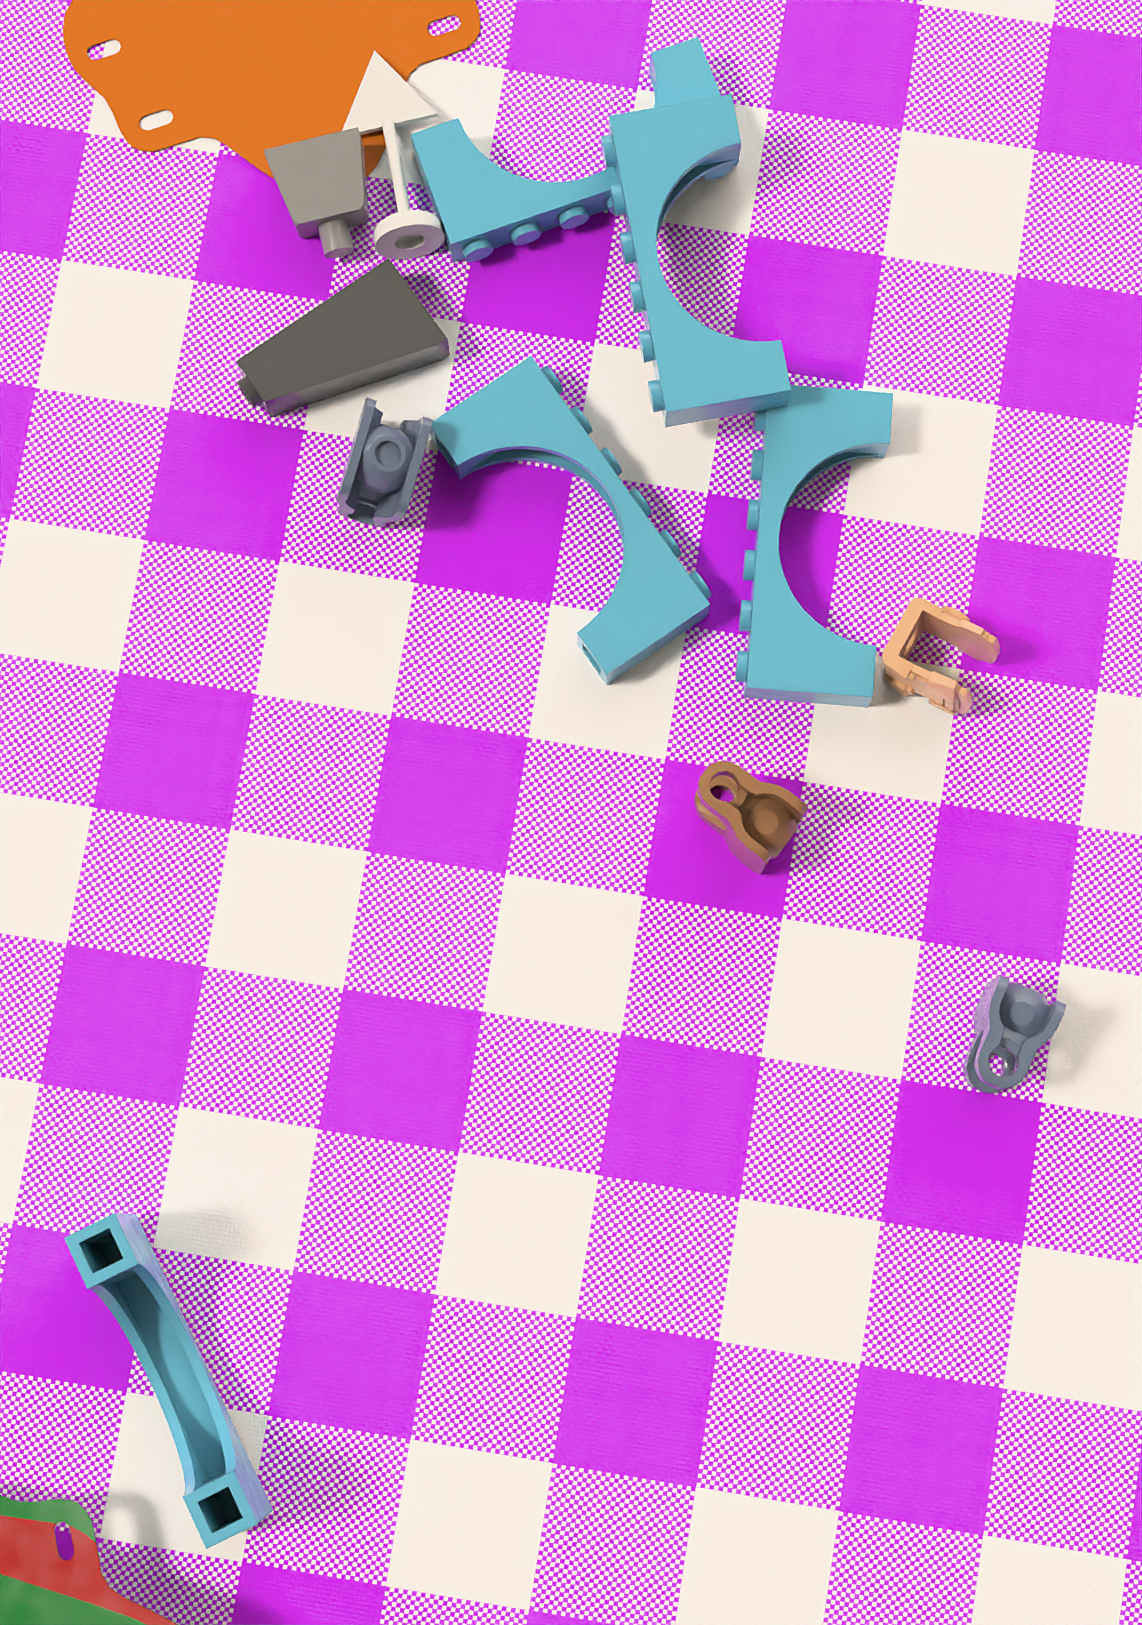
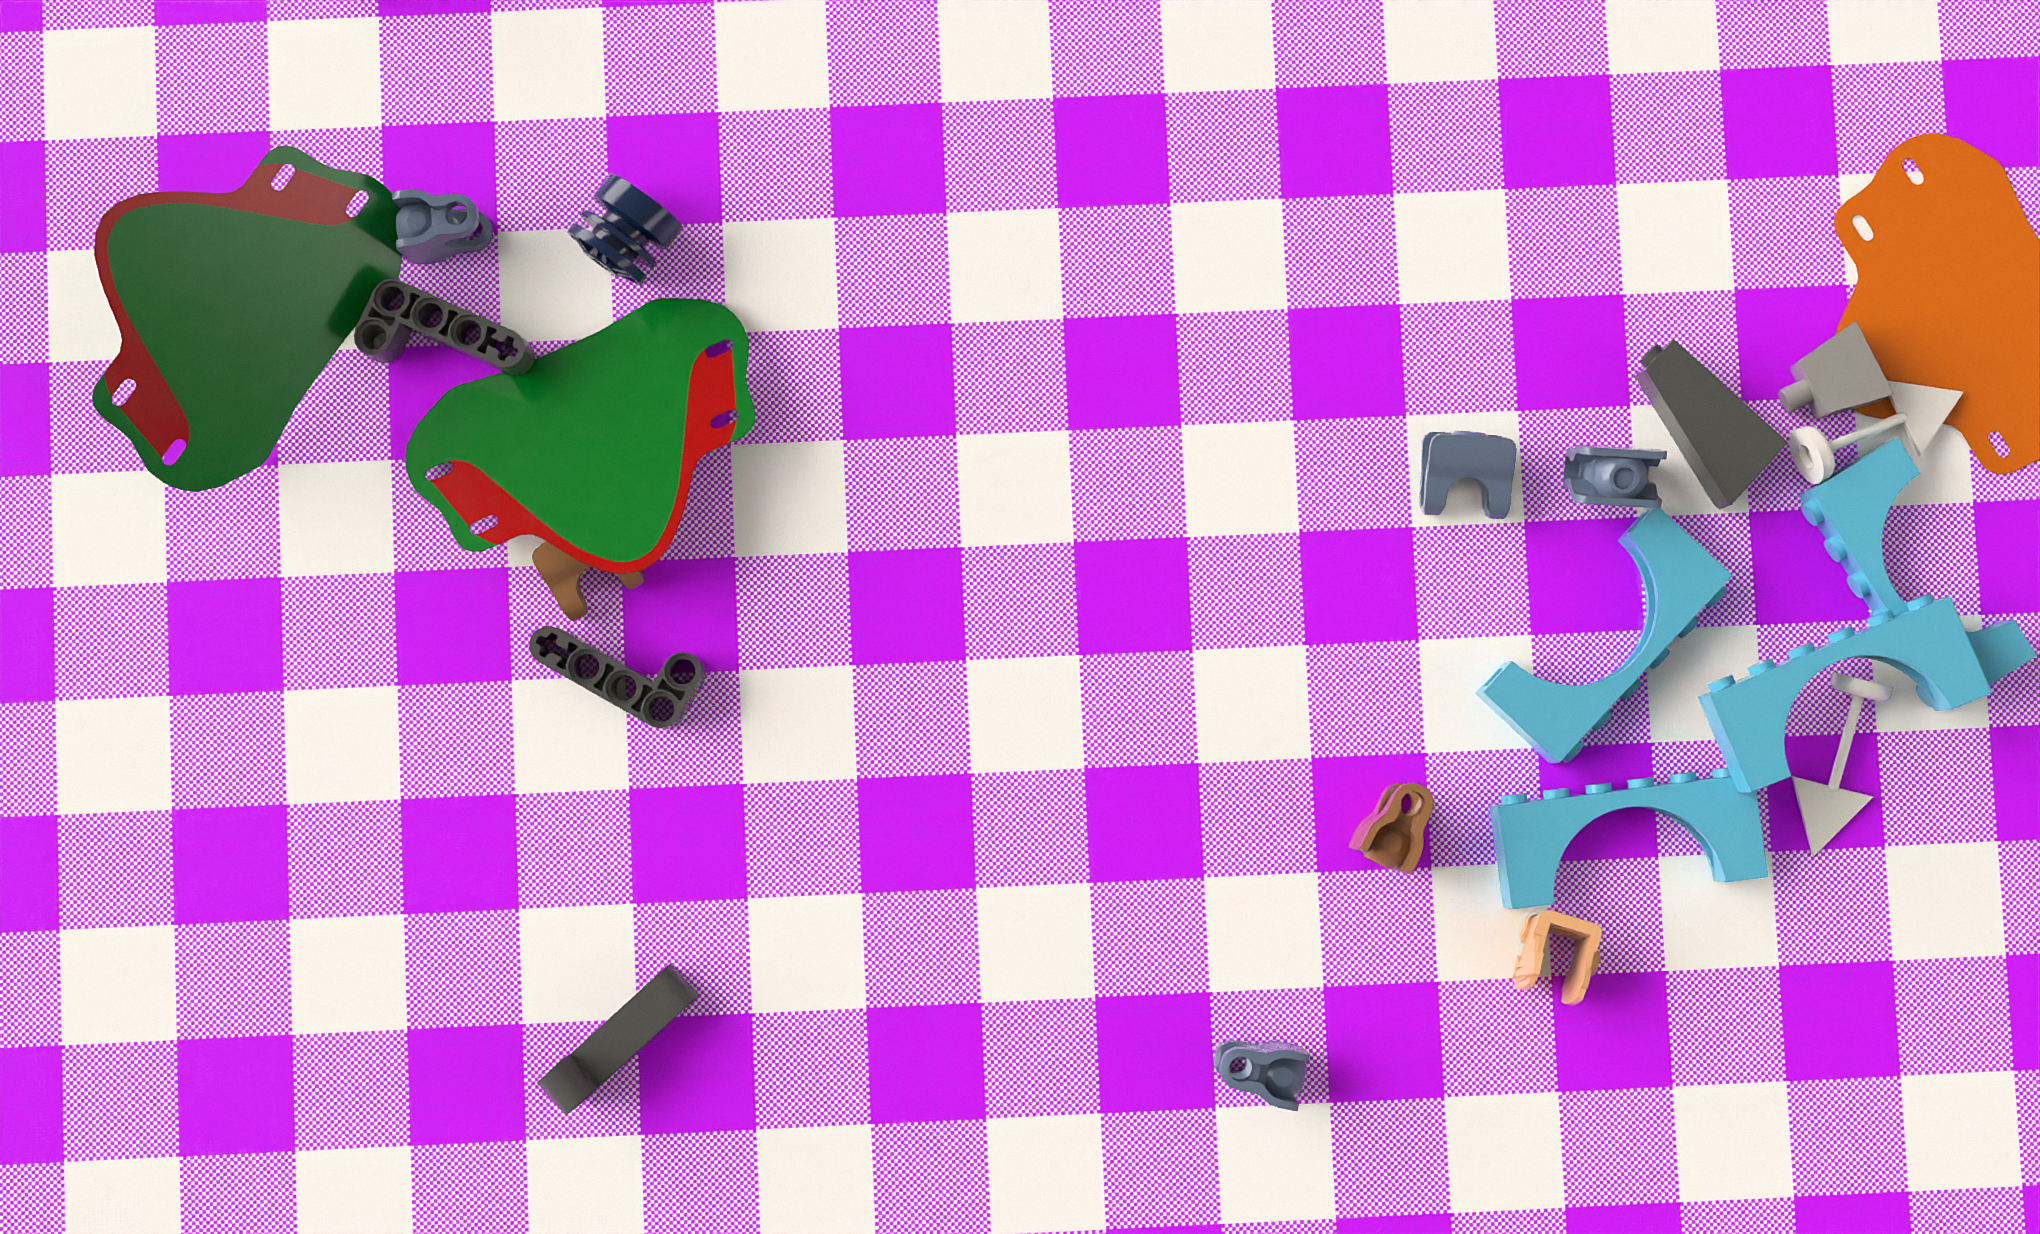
camera: 70 degrees right, 5 degrees up
(217, 1472) = (929, 422): medium azure arch -> none
(318, 633) = (1467, 454): none -> sand blue piece
(823, 309) = (1828, 807): none -> white piece

